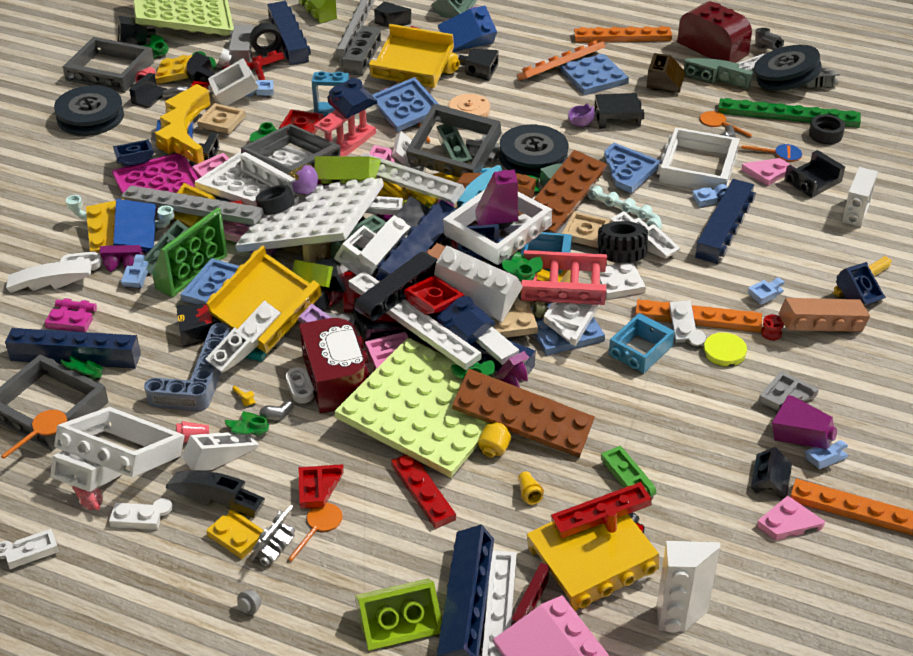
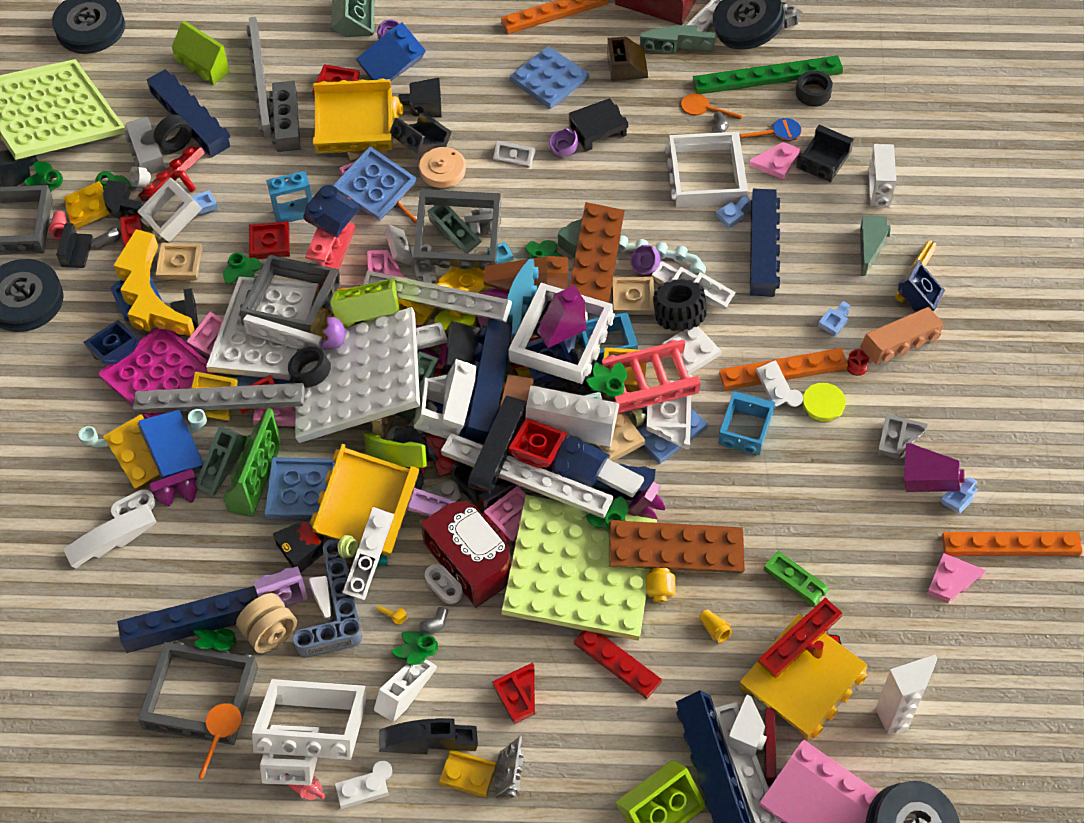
camera: 20 degrees left, 15 degrees up
(71, 320) = (162, 582): dark pink plate -> none
(129, 364) = (266, 622): none -> tan wheel
(135, 275) = (202, 504): light blue plate -> none
(158, 348) = (286, 584): none -> lavender slope
(190, 359) = (321, 591): none -> white slope
(190, 428) = (365, 675): coral cone -> none
(224, 326) = (347, 546): none -> yellowish green plate
(322, 520) = (539, 728): orange piece -> none
(391, 13) = (293, 53): black slope -> none
(469, 84) = (422, 135): none -> black panel
(511, 573) = (747, 729): none -> white slope
(532, 148) = (525, 203): black wheel -> none
(536, 114) = (514, 153): none -> white slope
(555, 61) = (505, 72): orange plate -> none
(609, 205) = (645, 260): none -> medium lavender hair
(629, 167) = (640, 198): medium blue plate -> none
(773, 471) = (919, 532): black panel -> none
(830, 243) = (872, 239): none -> sand green slope

